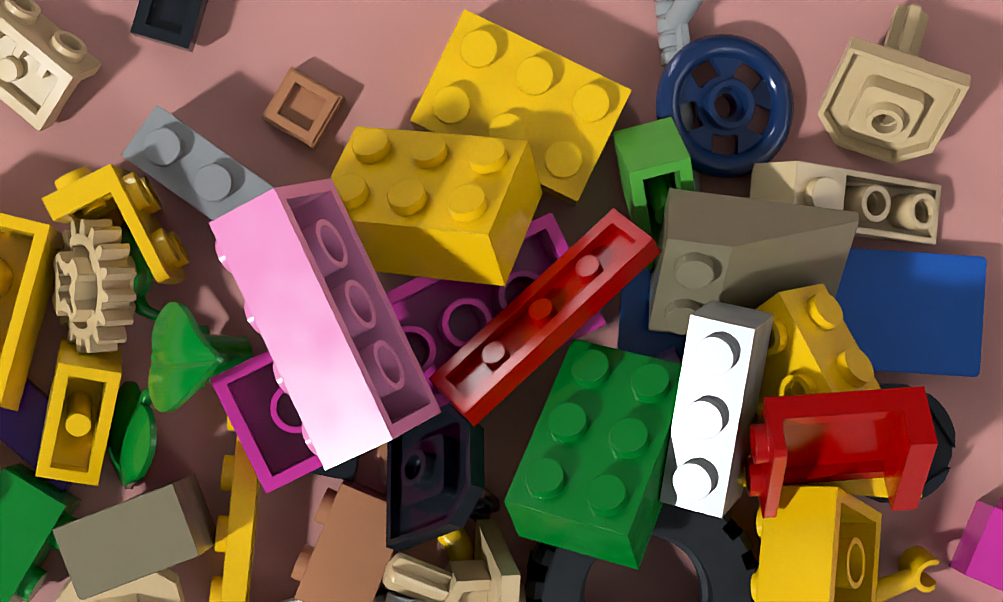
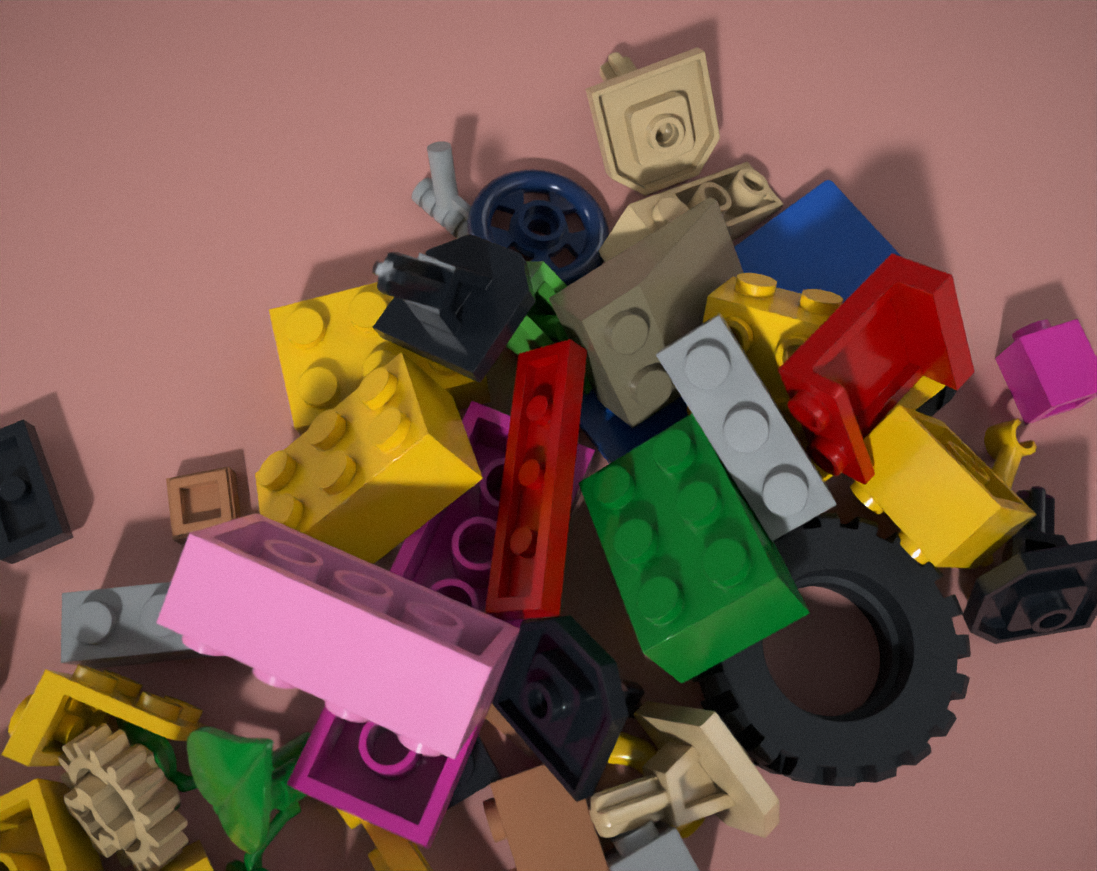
camera: 40 degrees left, 15 degrees down
(601, 138) = (455, 302): none -> black piece

